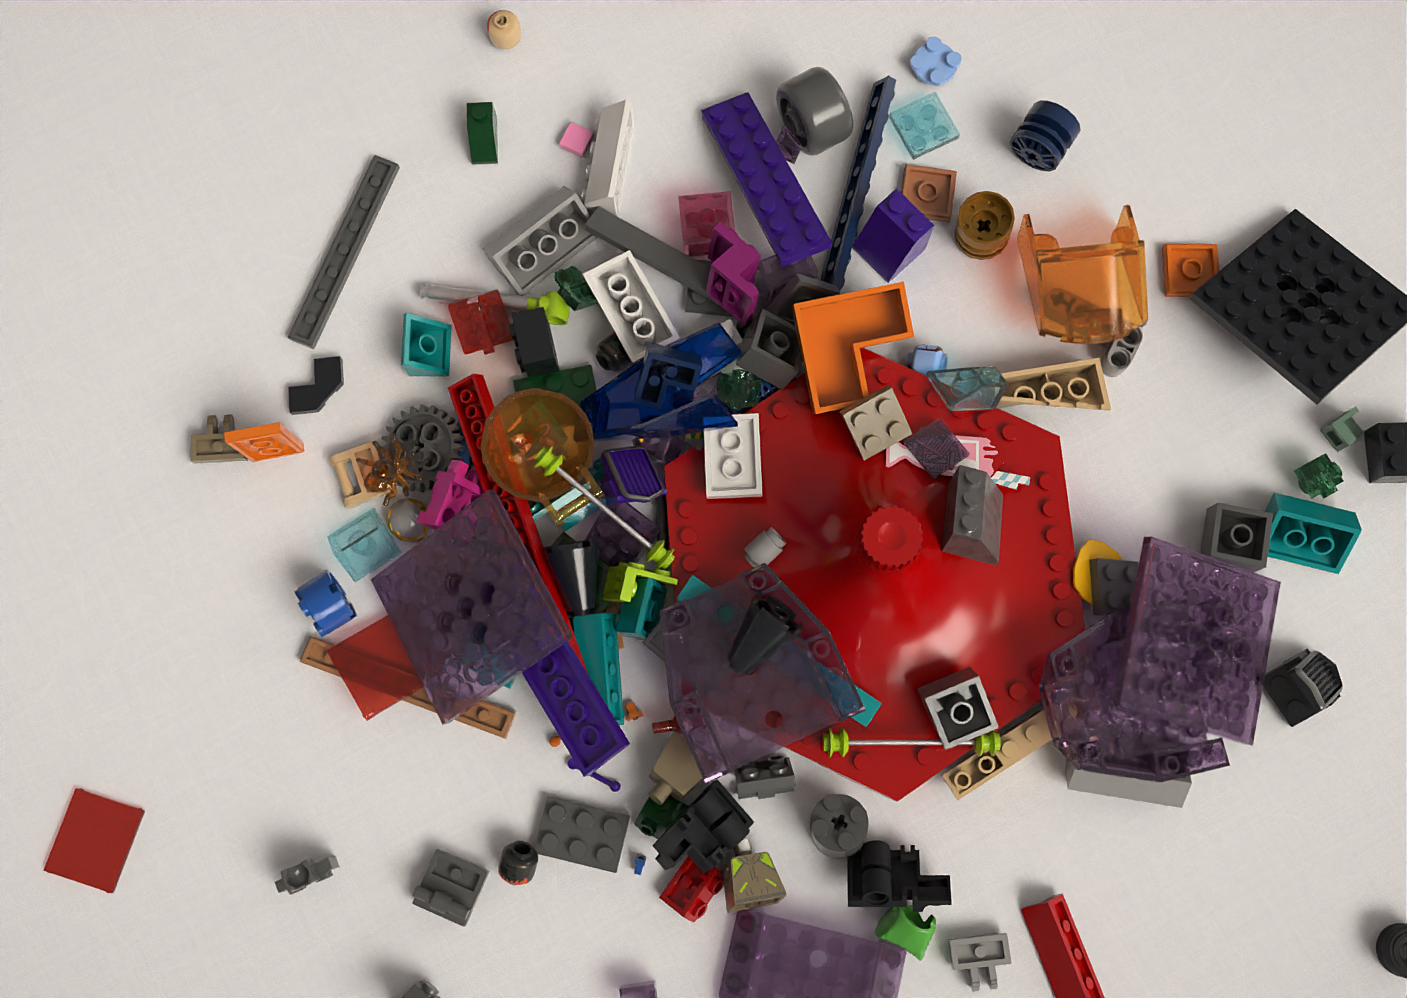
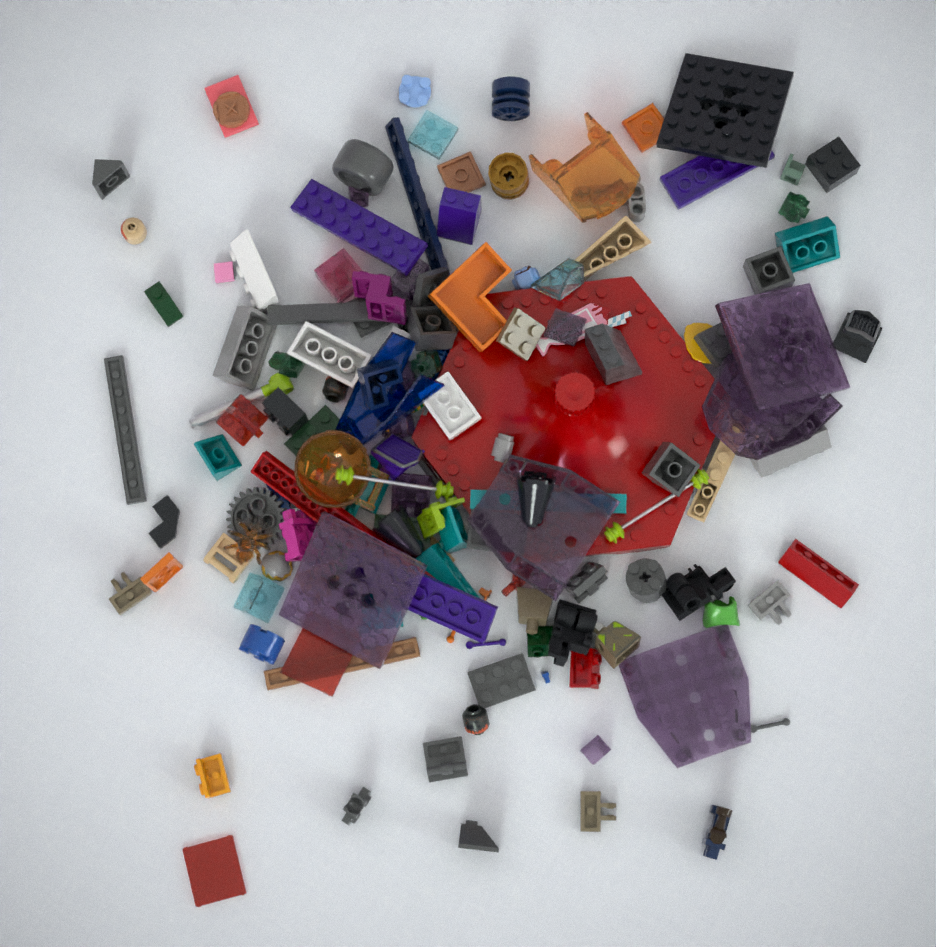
camera: 30 degrees left, 0 degrees up
(165, 724) = (212, 775): none -> light orange bracket
(1224, 369) = (701, 177): none -> dark purple plate

